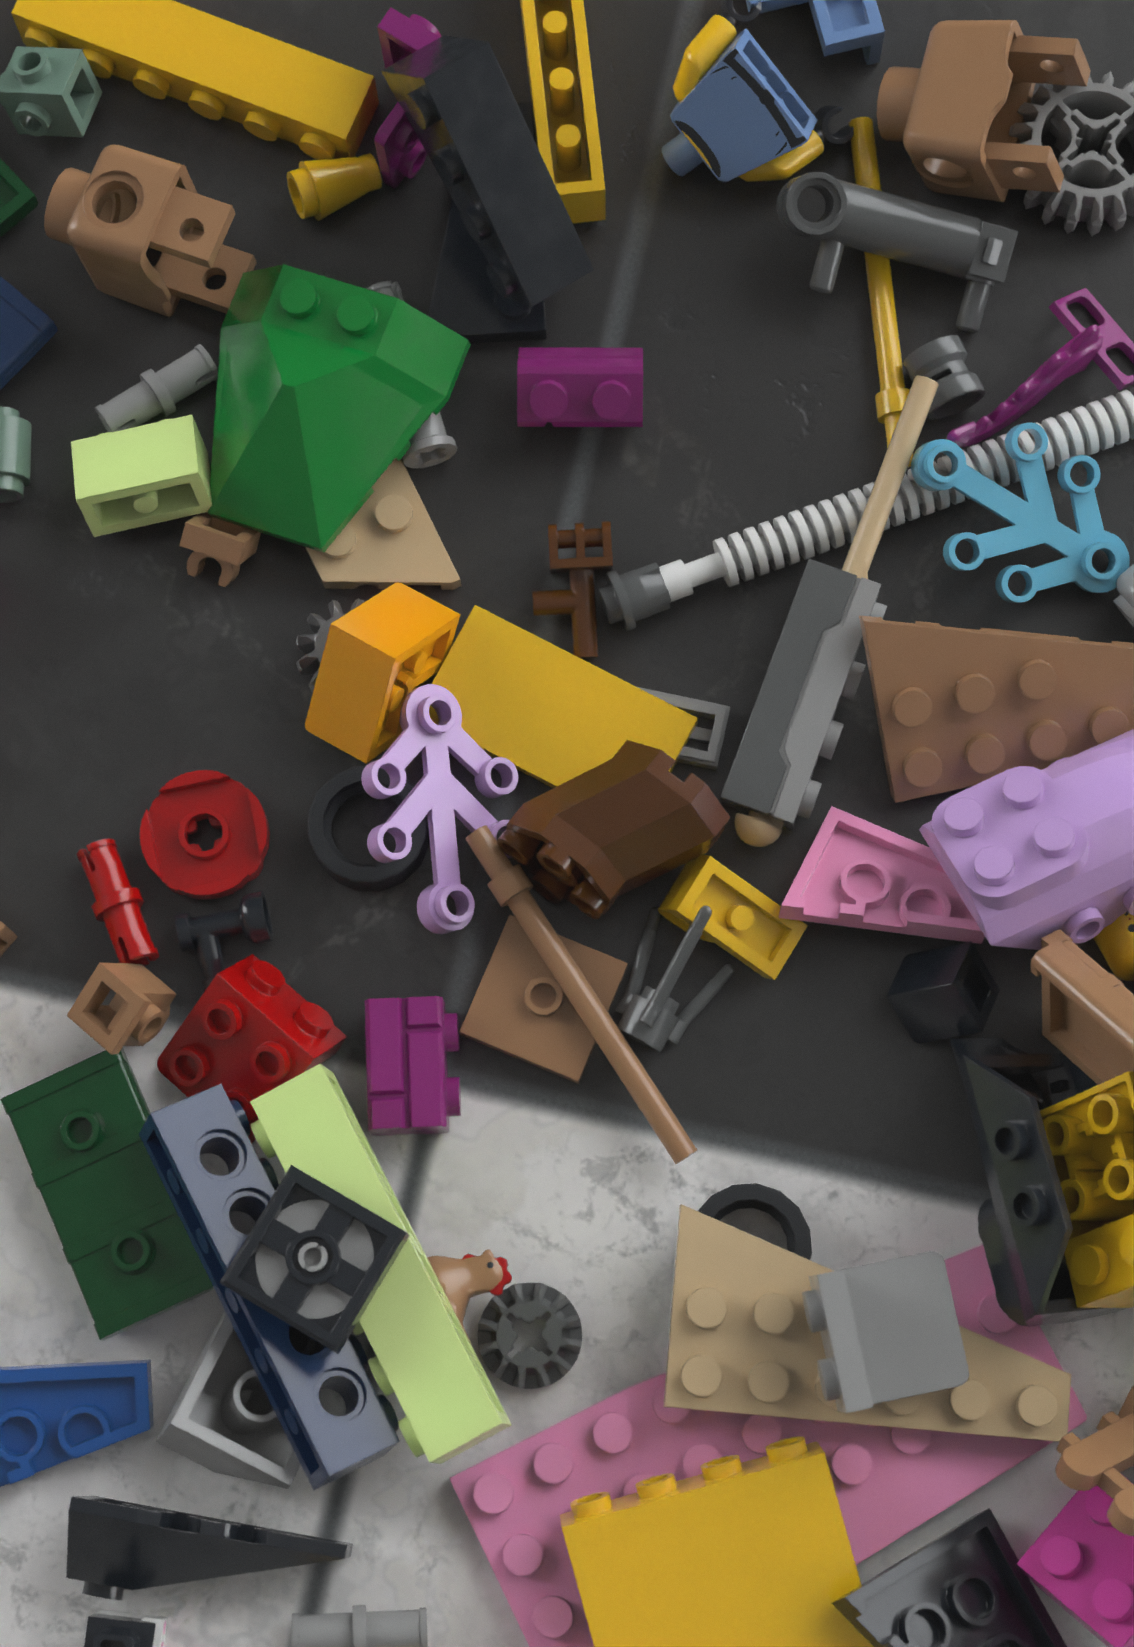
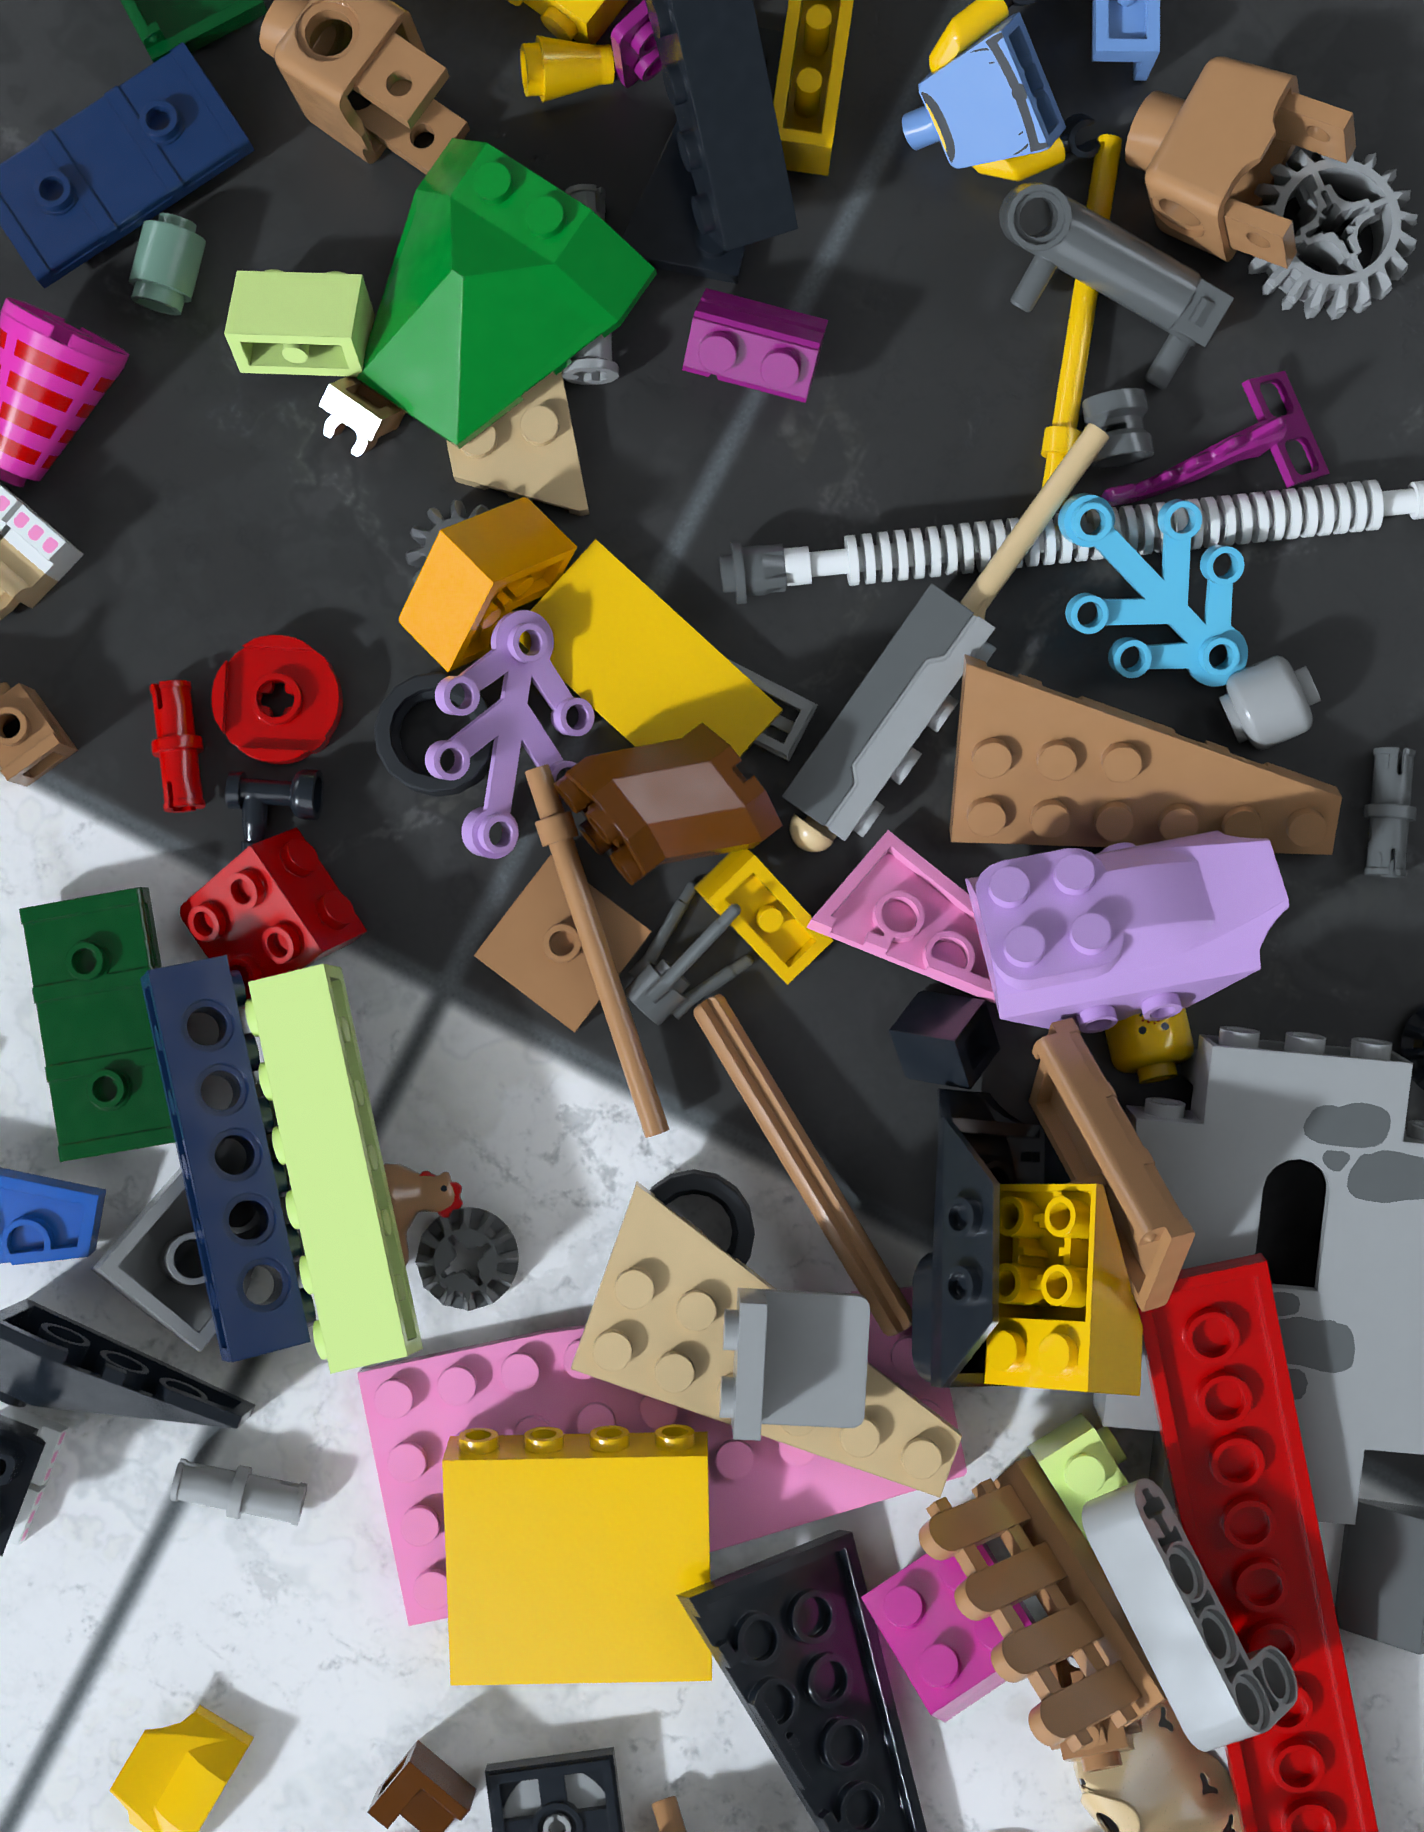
camera: 15 degrees right, 10 degrees up
(134, 1012) = (167, 857): medium nougat brick -> none
(158, 391) = (339, 239): light grey pin -> none
(314, 1259) = (267, 1156): black piece -> none
(409, 1066) = (417, 978): magenta brick -> none
(580, 598) = (700, 558): reddish brown arm -> none
(839, 1149) = (804, 1165): none -> medium nougat axle

